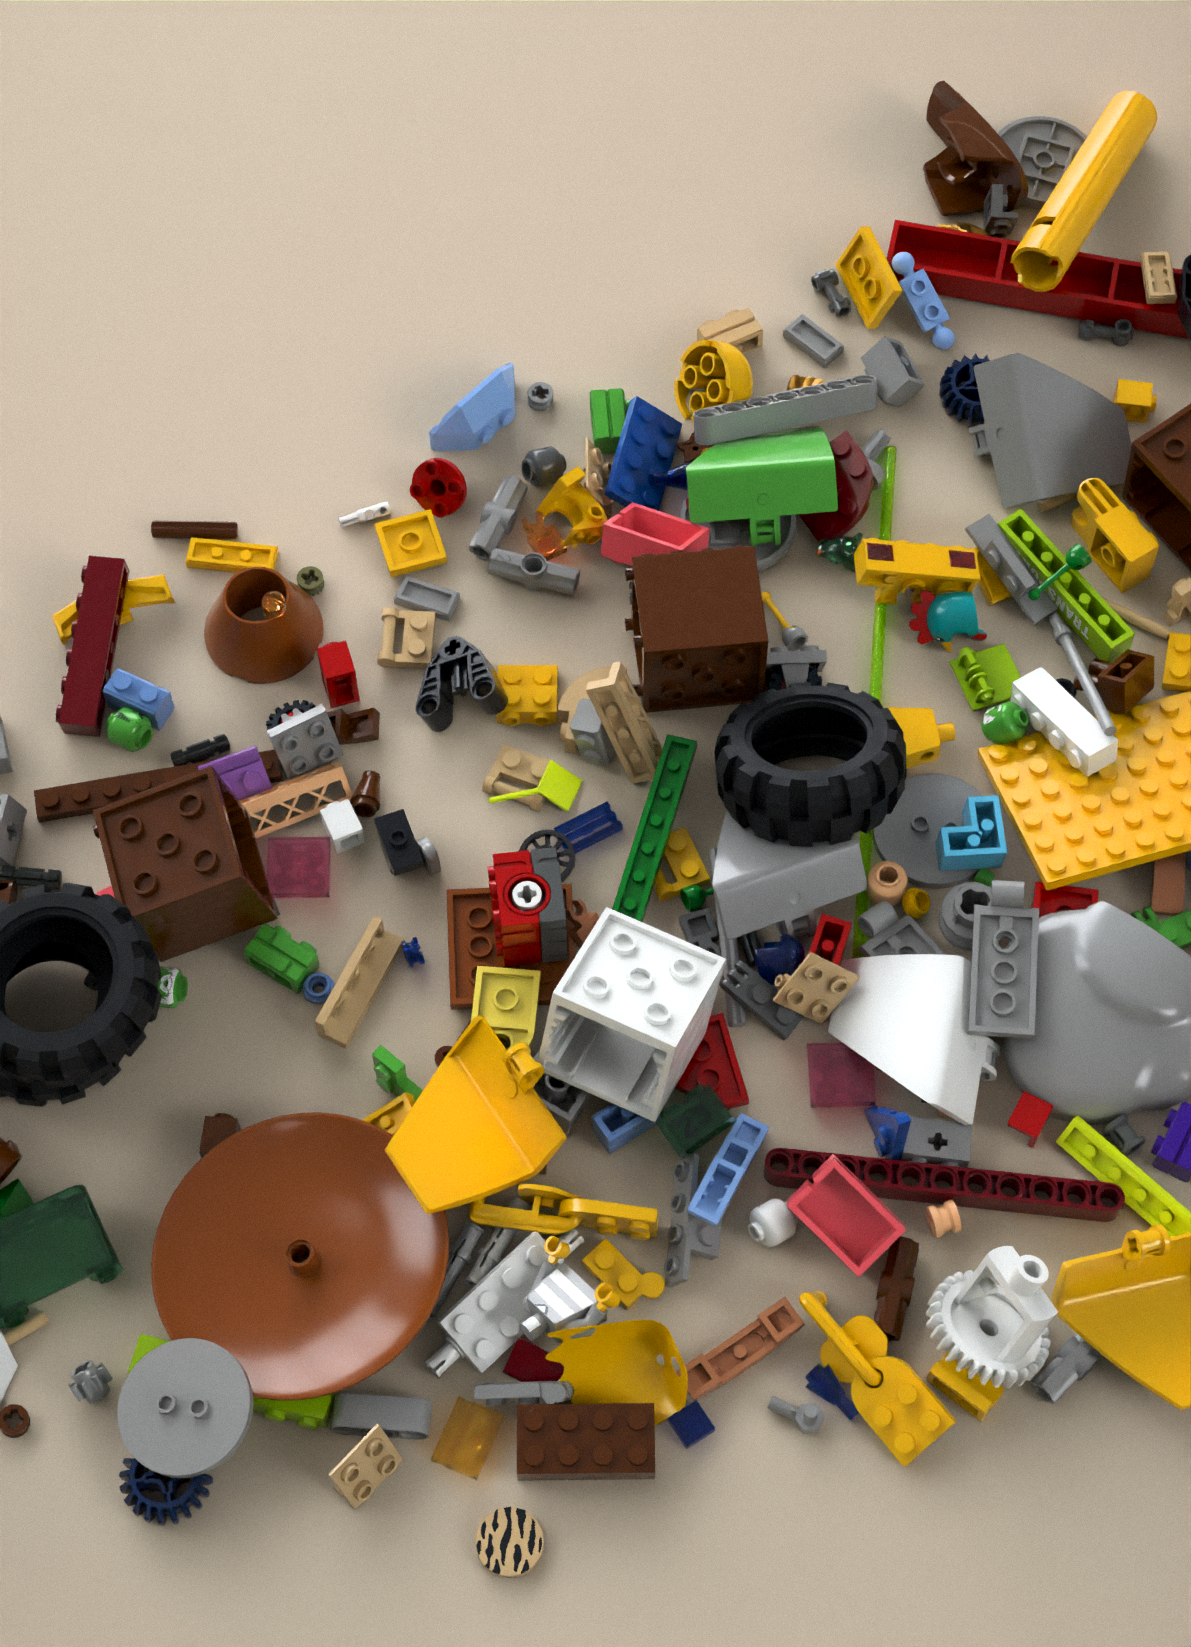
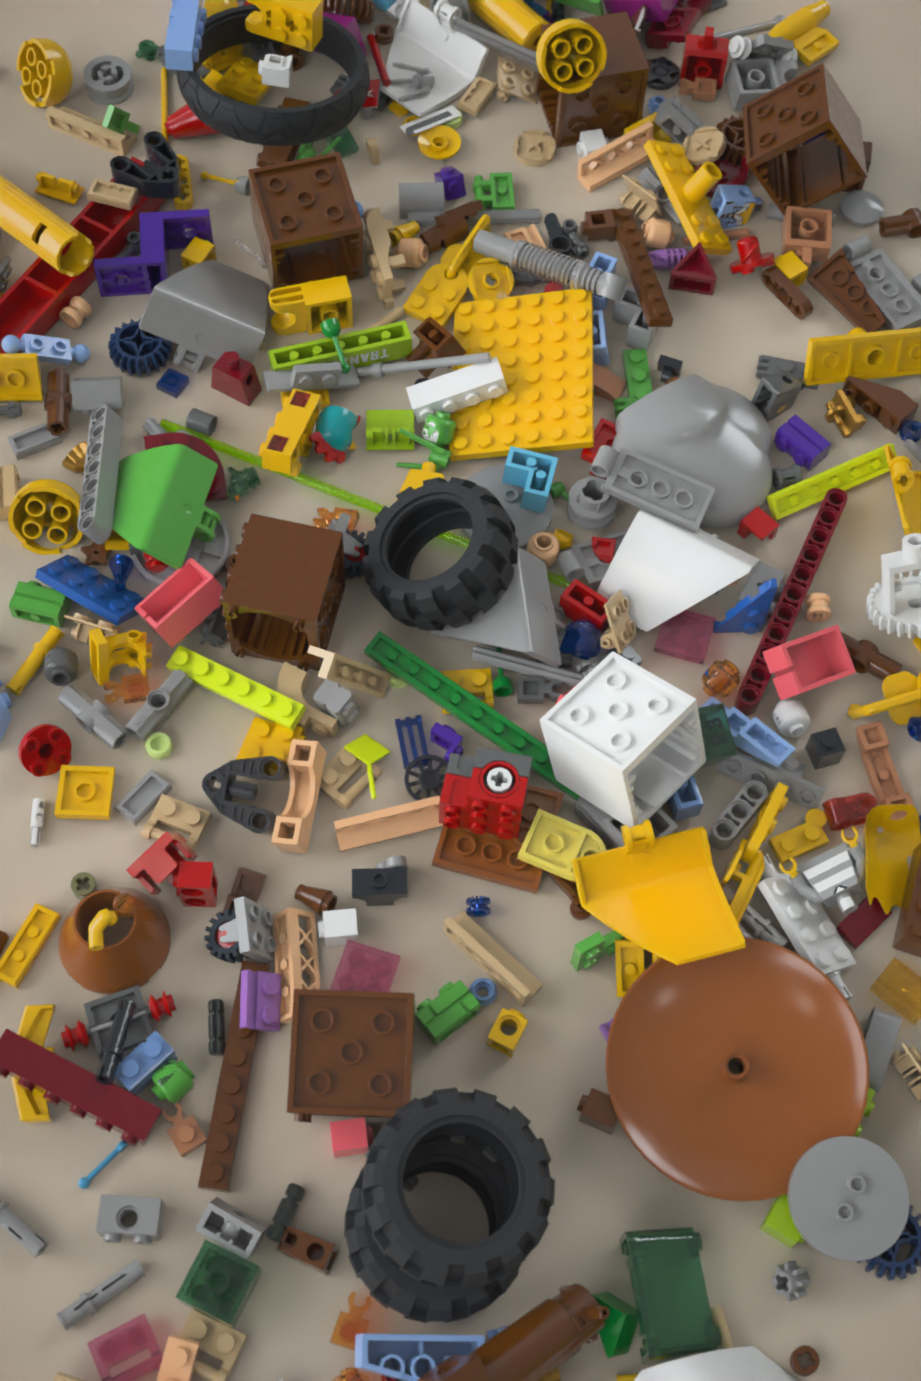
camera: 75 degrees left, 0 degrees up
(12, 694) = (84, 1182): none -> dark azure hinge
(84, 762) = (185, 1132): none -> nougat plate
(137, 660) = (113, 1052): none -> black pin
(177, 662) = (102, 1013): none -> dark grey plate
(239, 589) = (97, 926): none -> yellow arm
(269, 1014) = (502, 1042): none -> yellow brick
(357, 626) = (161, 861): none -> panel
(439, 743) = (295, 823): none -> light nougat arch
(468, 823) = (387, 824): none -> light nougat fence
(491, 591) = (159, 746): none -> yellowish green tile
(525, 1392) = (886, 932): light grey hinge -> none
(534, 441) = (34, 660): none -> yellow pin
(578, 633) = (237, 688): none -> neon yellow plate
(595, 871) = (447, 739): none -> dark purple bracket
(610, 1181) = (742, 804): none -> light grey beam
(671, 1311) = (845, 811): none -> clear red piece
(745, 1270) = (825, 748): none -> black brick
(791, 1127) = (720, 678): none -> clear orange head
(839, 664) = (328, 516): none -> clear orange plate
(863, 338) = (57, 402): none -> reddish brown piece
(906, 485) = (201, 422): none -> dark grey beam
(917, 944) = (604, 548): none -> red tile
(949, 440) = (172, 383): none -> clear blue tile
(971, 736) = (438, 455): none -> bright green plant
(977, 487) = (236, 378): none -> dark red torso
(994, 312) = (75, 312): none -> light nougat wheel
(1110, 351) = (157, 236): none -> dark purple bracket
(1161, 229) = (59, 188): none -> yellow hinge

